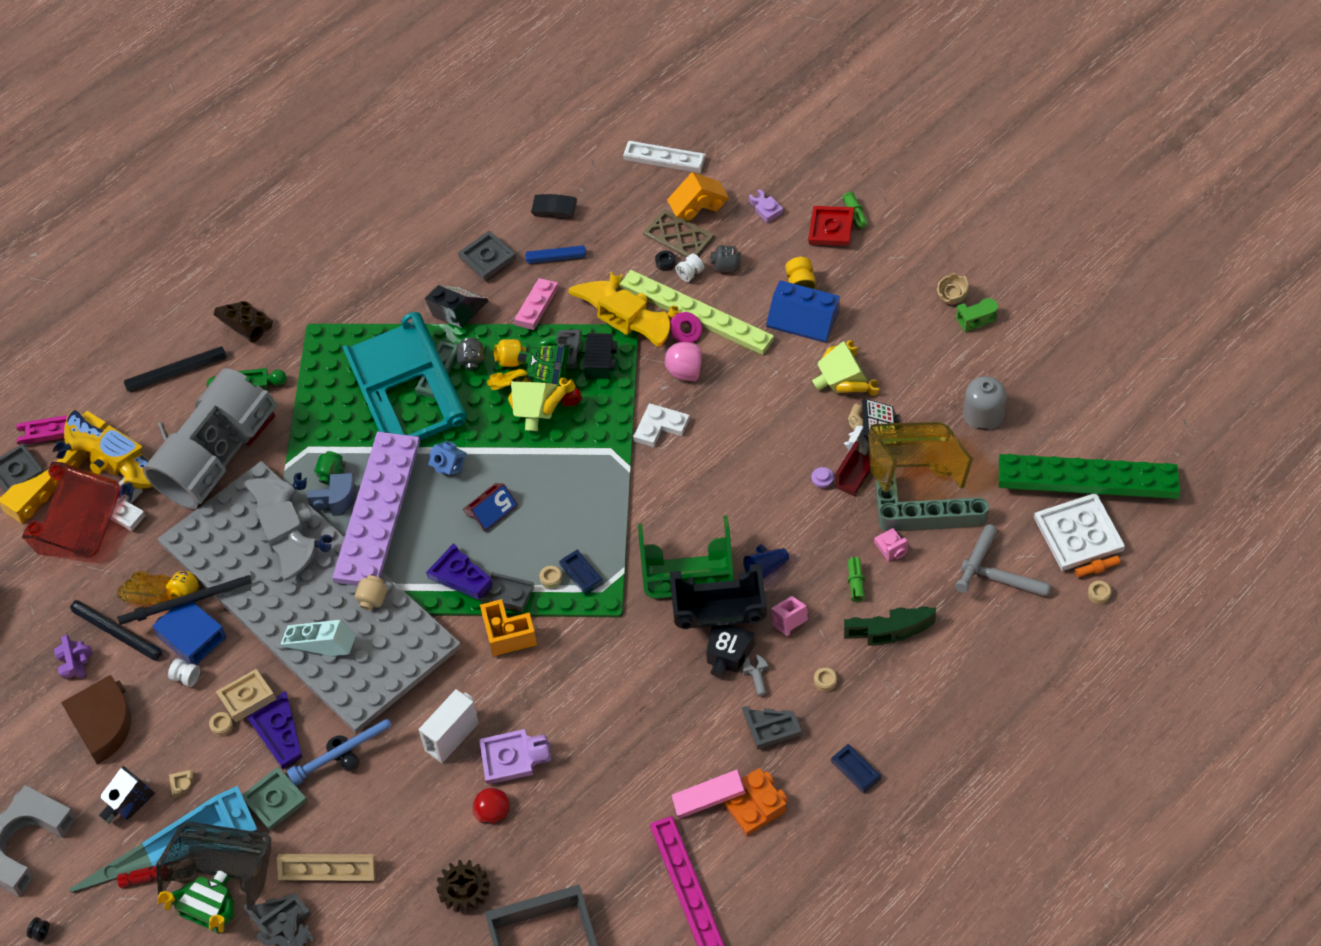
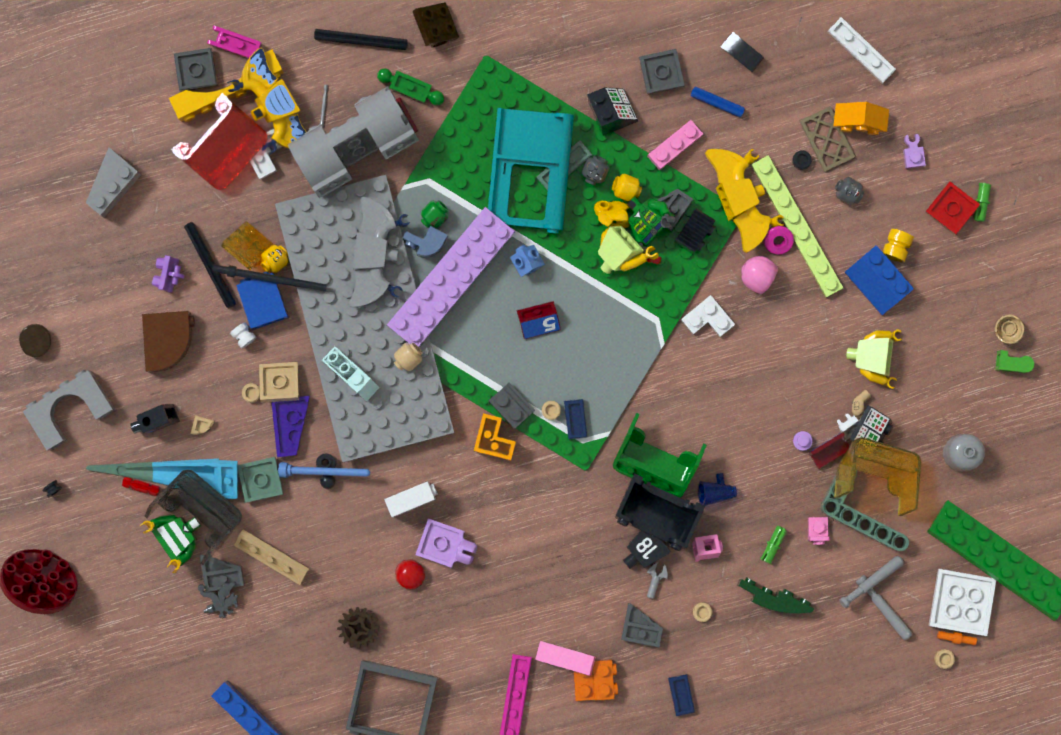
camera: 25 degrees right, 30 degrees up
(459, 573) = (484, 372): dark purple wing -> none
(688, 268) = (814, 182): white wheel -> none

